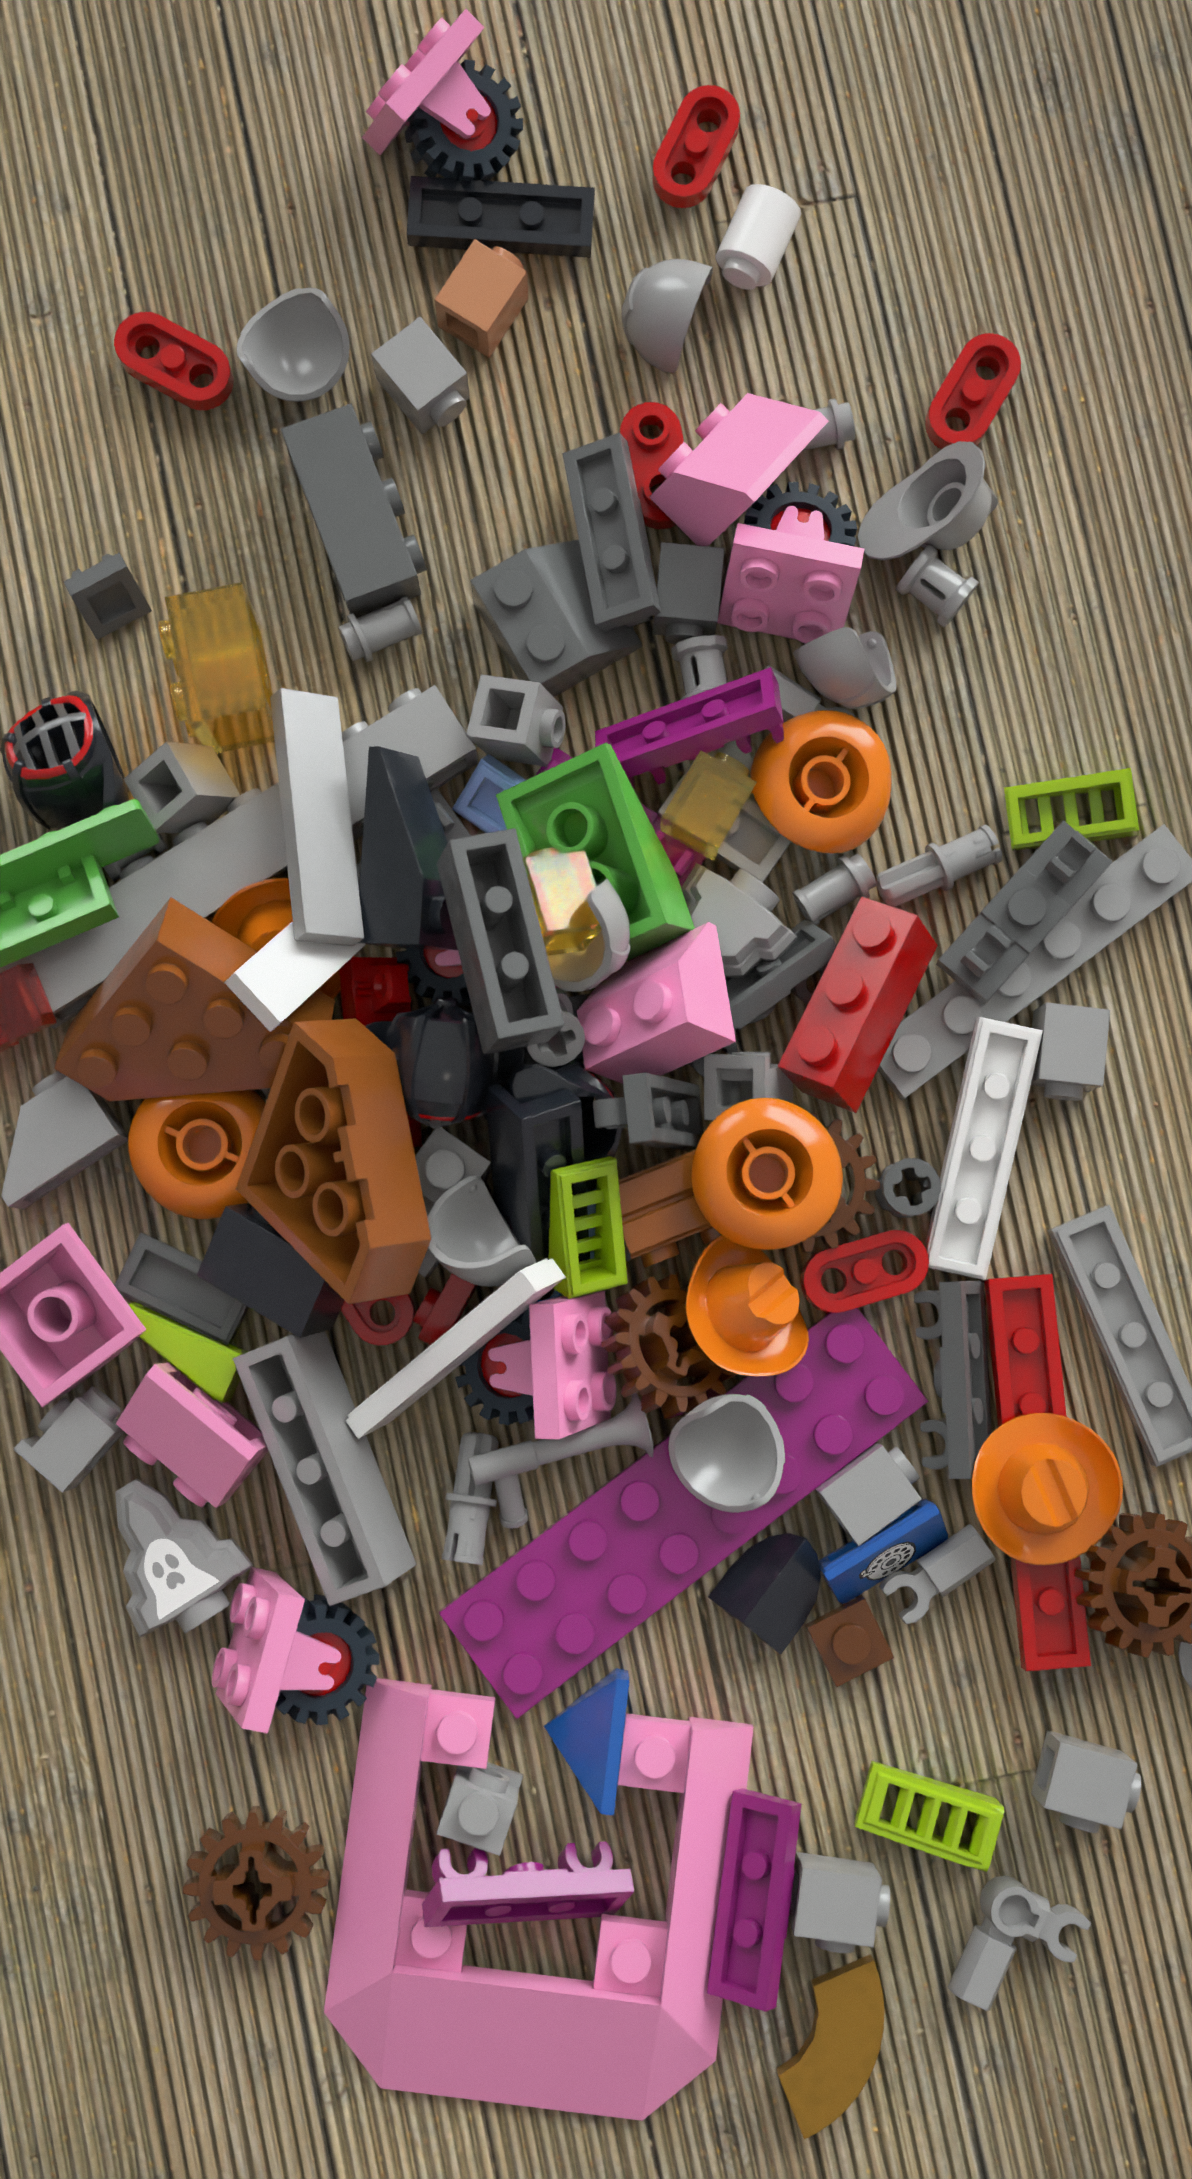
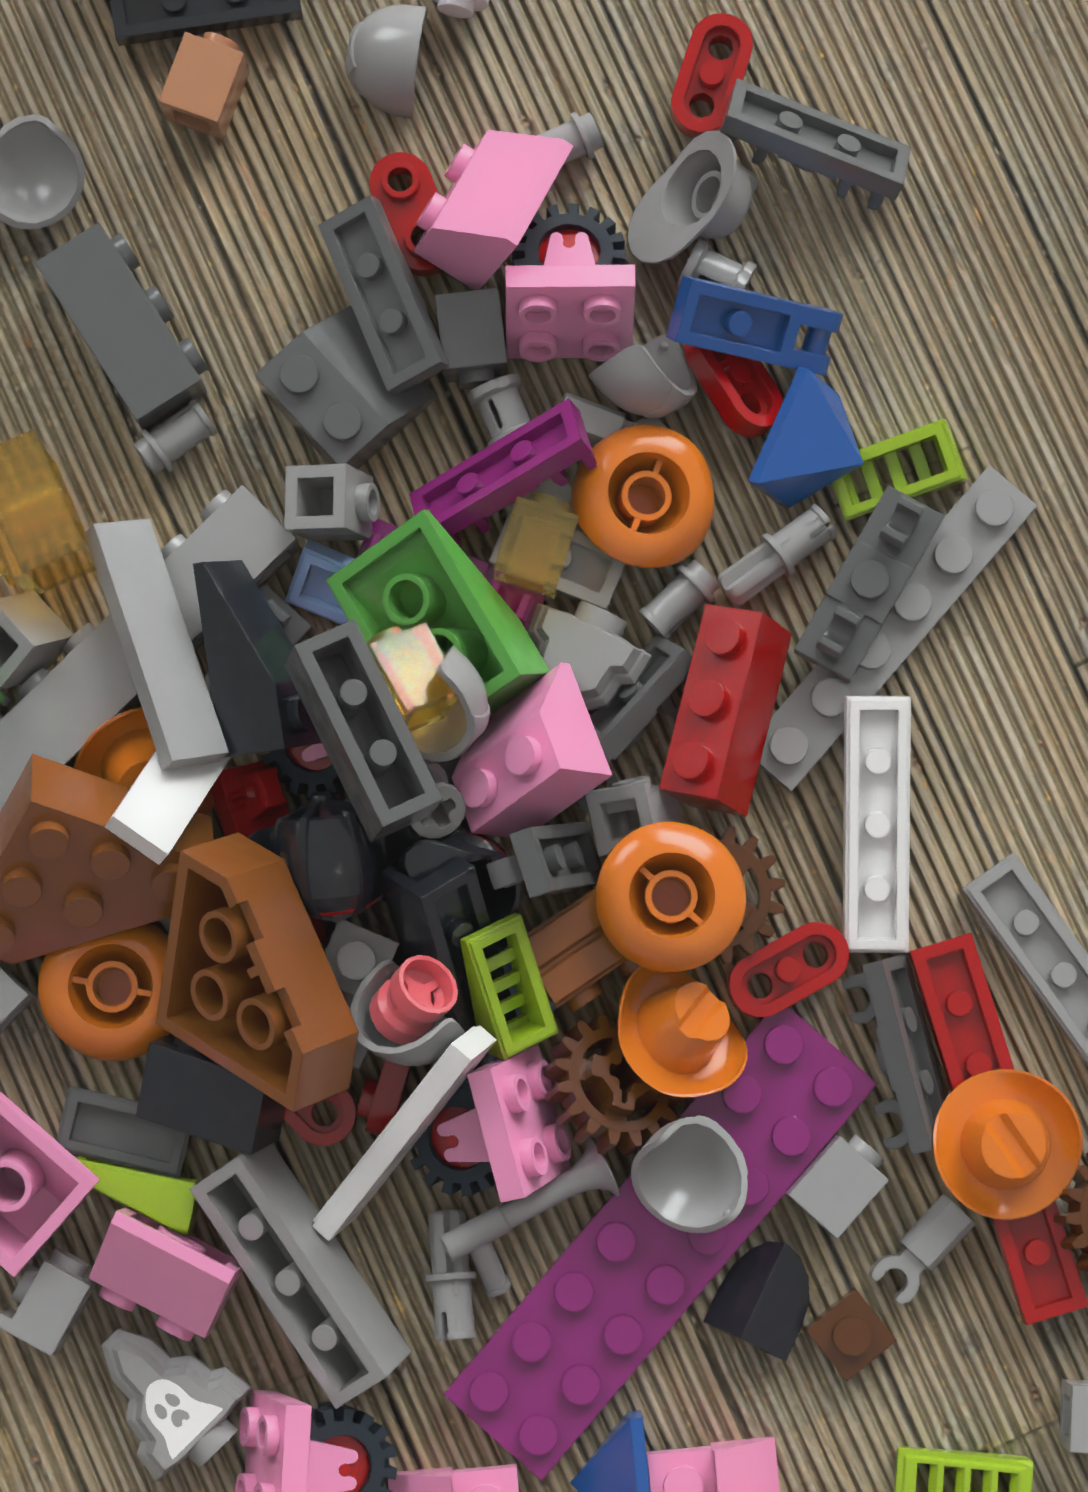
camera: 10 degrees left, 0 degrees up
(422, 376) = (162, 177): light grey brick -> none
(492, 1219) = (413, 999): none -> coral wheel
(907, 1538) = (869, 1237): blue slope -> none
(914, 1170) = (816, 860): dark grey bush -> none
(933, 686) = (737, 388): none -> red plate
(963, 636) = (752, 325): none -> blue plate
(991, 764) = (806, 444): none -> blue slope
(1062, 476) = (816, 142): none -> dark grey plate
(1070, 1050) = (942, 709): light grey brick -> none

